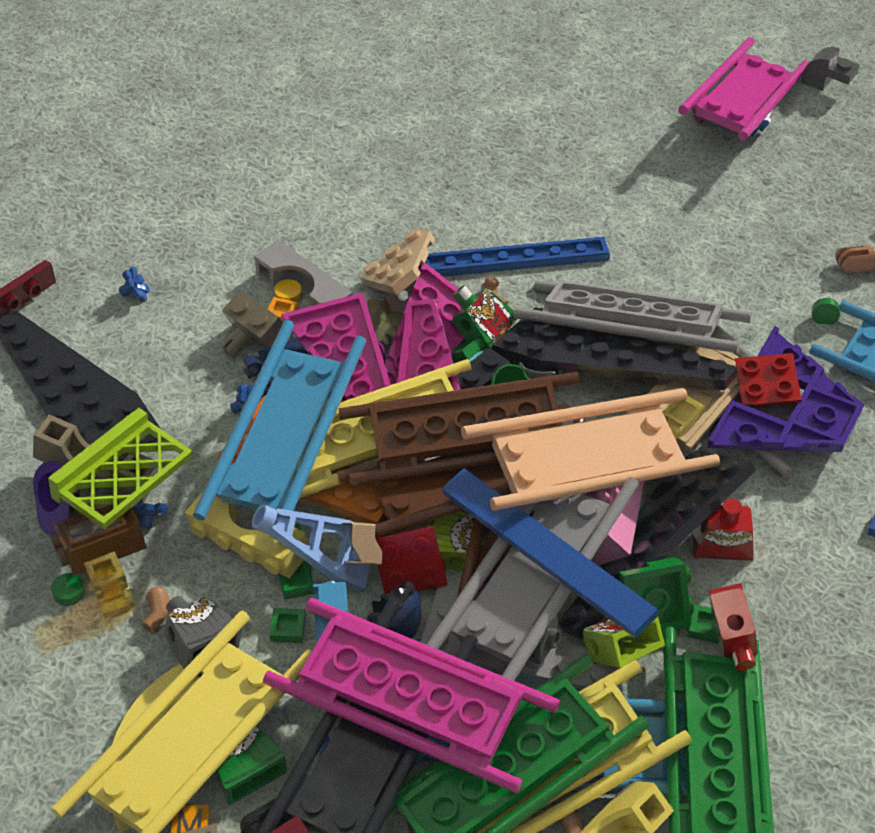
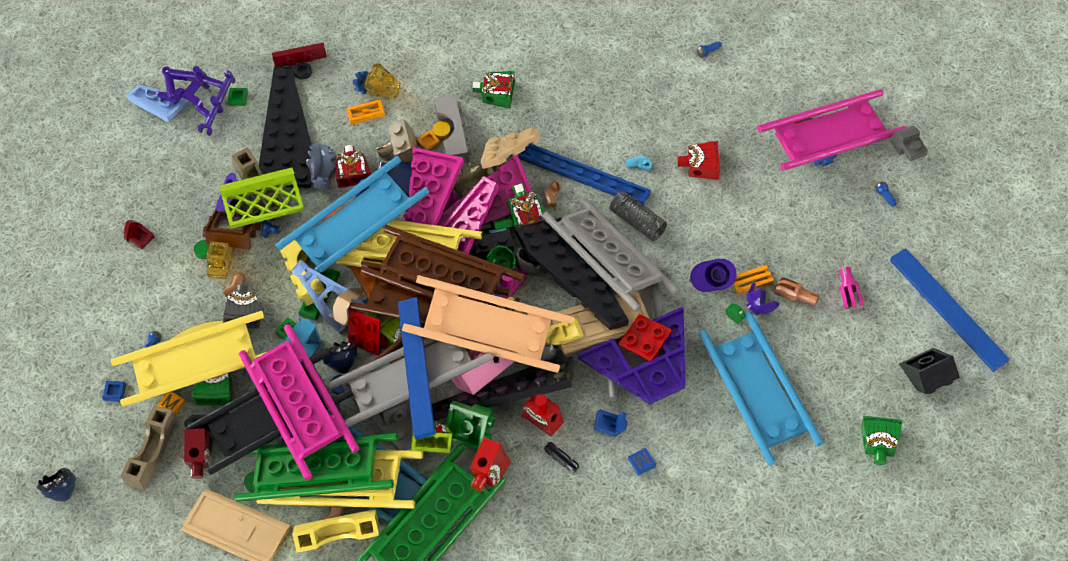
camera: 40 degrees right, 10 degrees up
(36, 309) = (302, 70): none -> black tile
(85, 747) = (153, 338): none -> blue piece
(163, 402) = (321, 165): none -> sand blue plant
(164, 270) = (382, 82): none -> clear yellow brick
(169, 318) = (366, 114): none -> light orange tile
(208, 383) = (351, 167): none -> torso
(321, 216) = (496, 88): none -> torso
(524, 82) = (703, 51): none -> blue piece
(564, 215) = (639, 161): none -> medium azure arm
(609, 261) = (624, 196): none -> dark grey piece
(635, 181) = (702, 160): none -> red torso
(769, 281) = (713, 275): none -> dark purple piece
(792, 575) = (561, 457): none -> black axle
(805, 256) = (757, 272): none -> light orange tile
(814, 501) = (610, 423): none -> blue bracket
(841, 283) = (757, 301): none -> dark purple piece
(842, 125) = (882, 188): none -> blue piece

